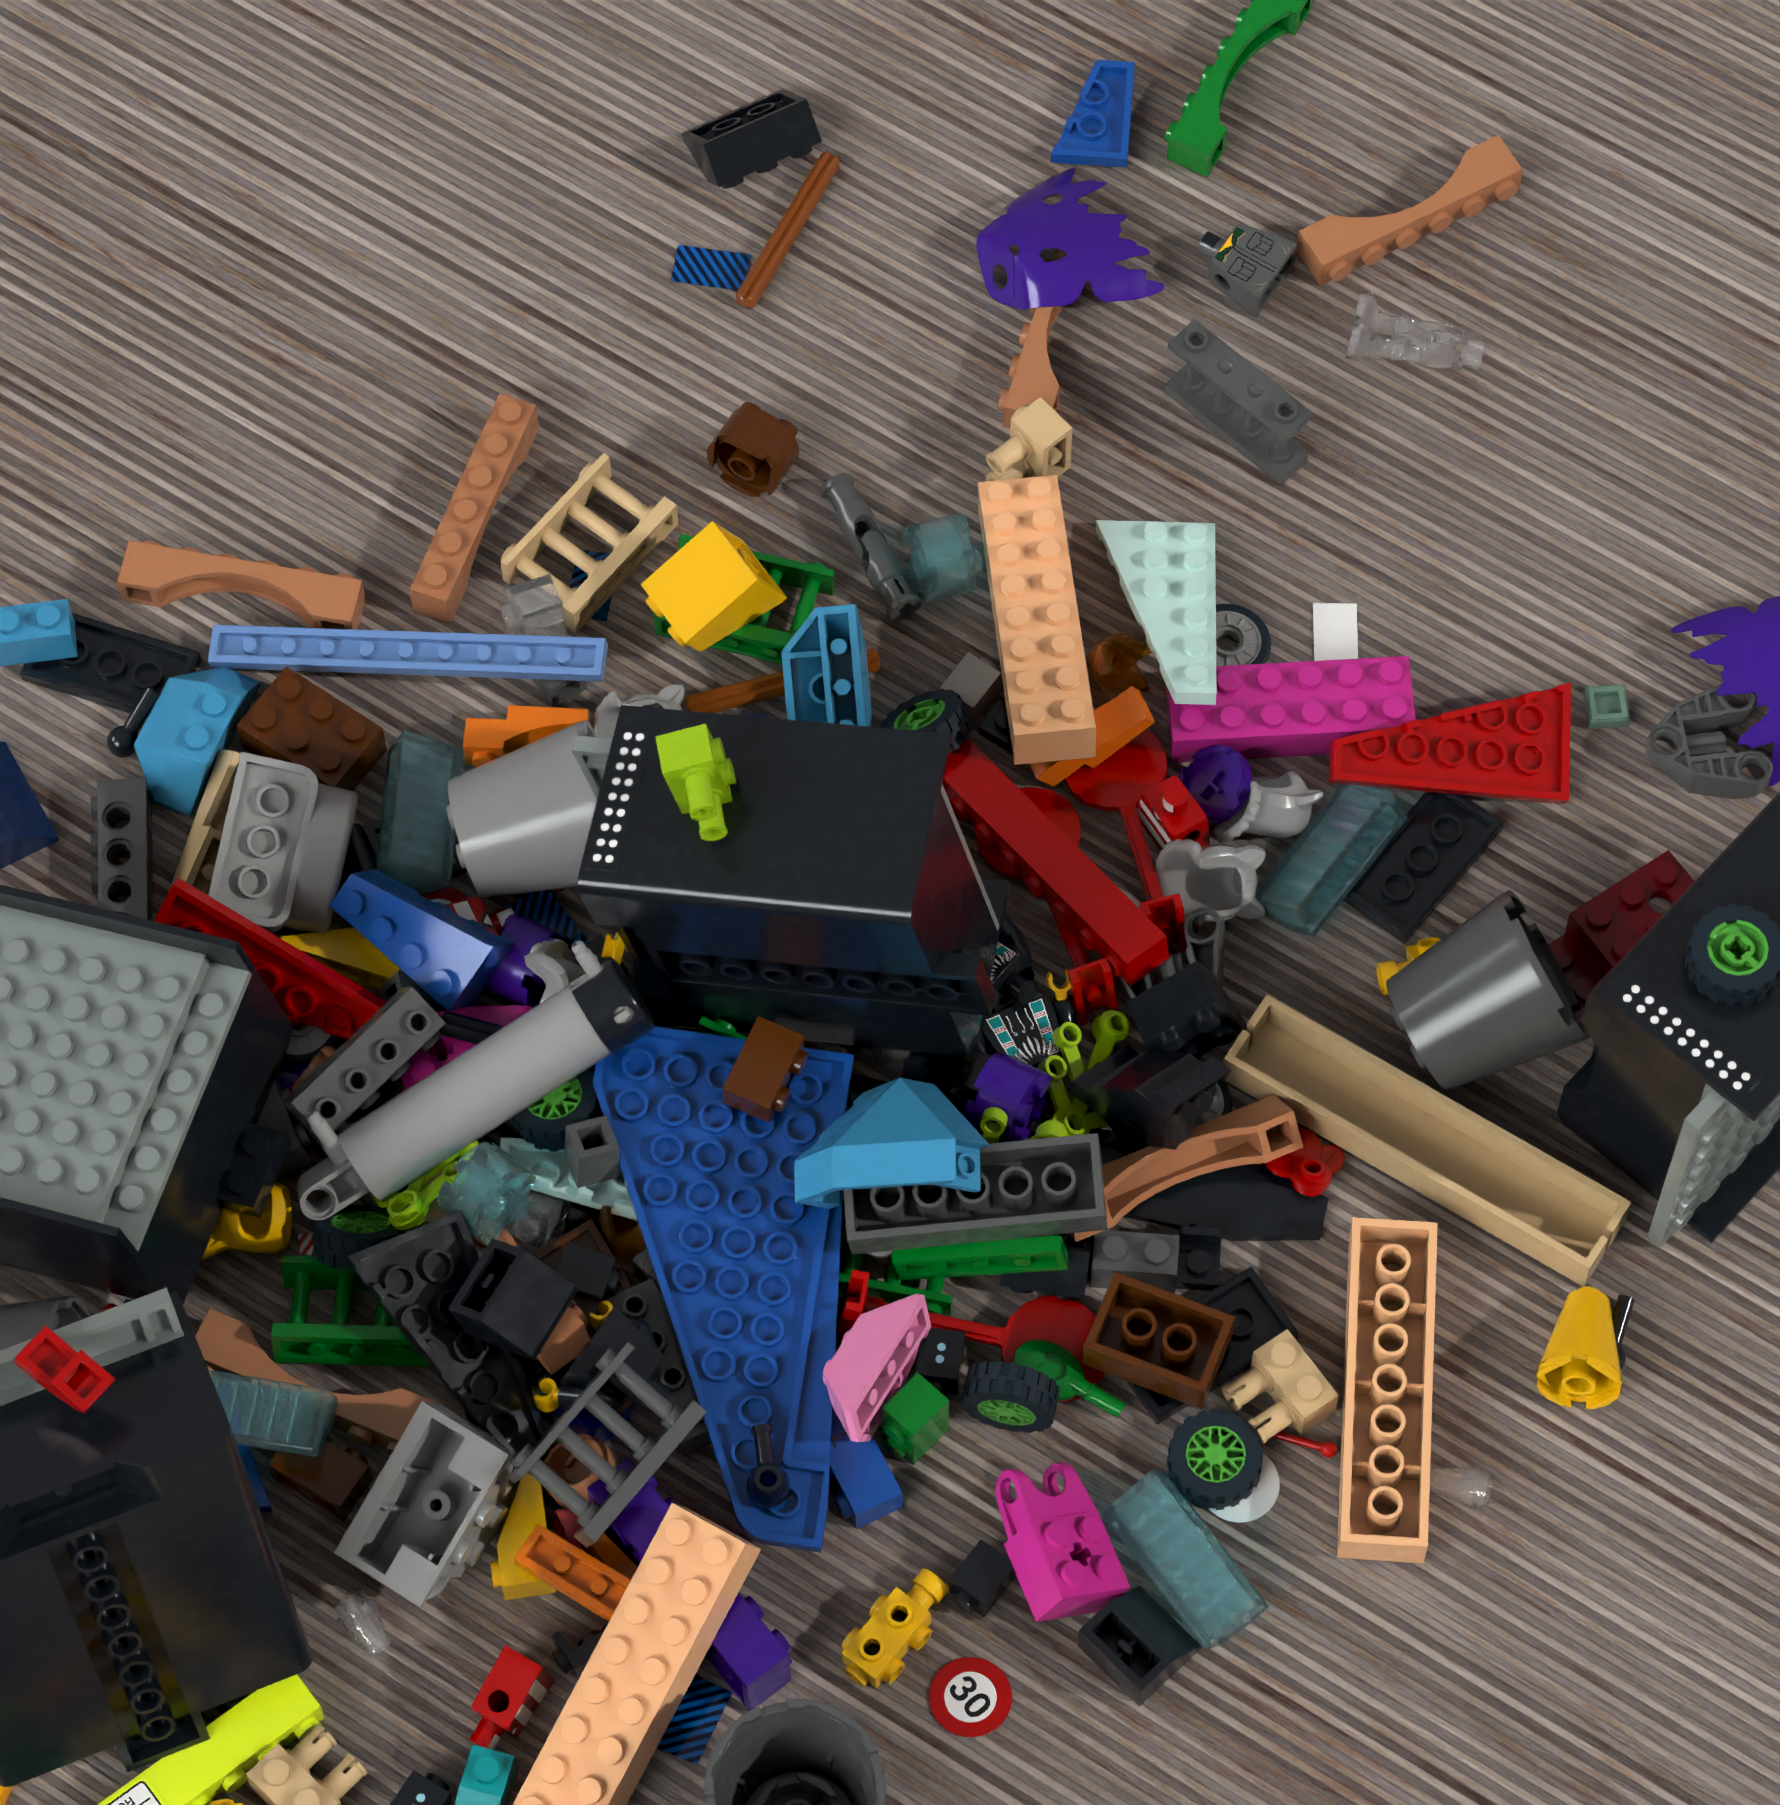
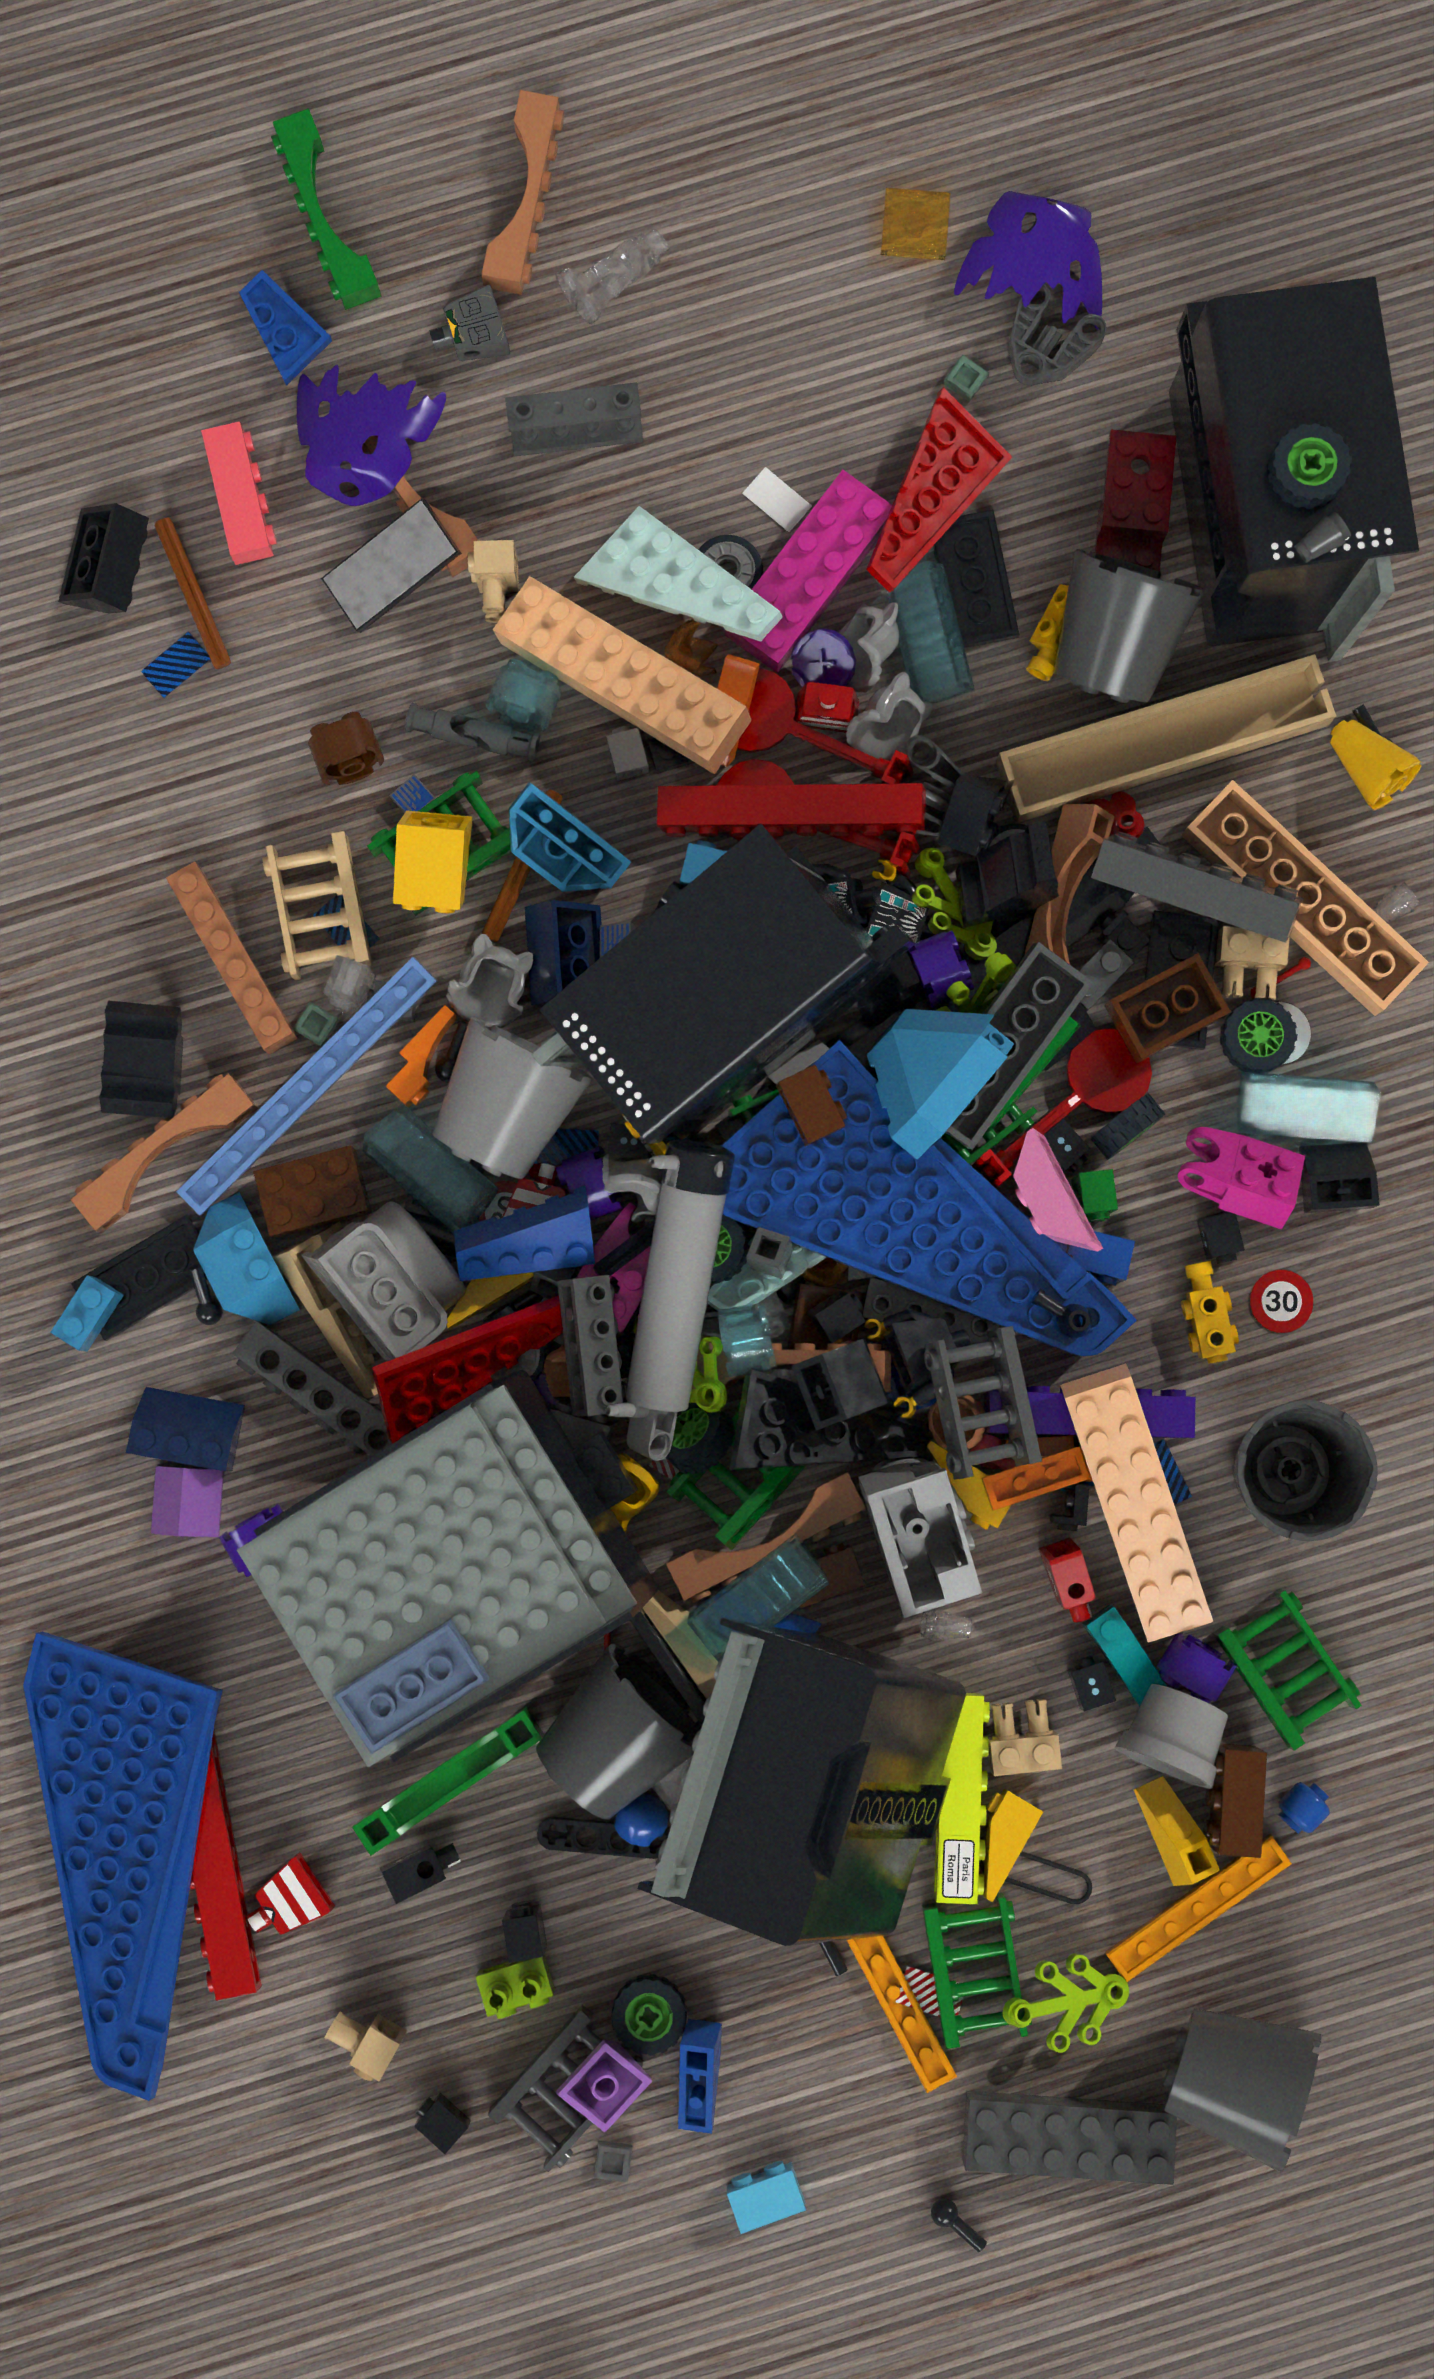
camera: 50 degrees left, 20 degrees up
(63, 1371) = (744, 1744): red slope -> none
(312, 500) = (141, 1059): none -> black slope
(476, 619) = (315, 1024): none -> sand green tile
(698, 776) = (651, 1006): lime brick -> none
(766, 539) = (412, 795): none -> tile
(912, 193) = (238, 494): none -> coral brick
(933, 712) = (638, 806): black wheel -> none
(961, 361) = (391, 565): none -> flat silver tile
(1067, 1372) = (1128, 1083): green piece -> none
(1299, 1264) = (1197, 887): none -> dark grey brick
(1680, 1018) = (1323, 537): none -> dark grey cone
(1708, 552) = (915, 223): none -> clear yellow plate

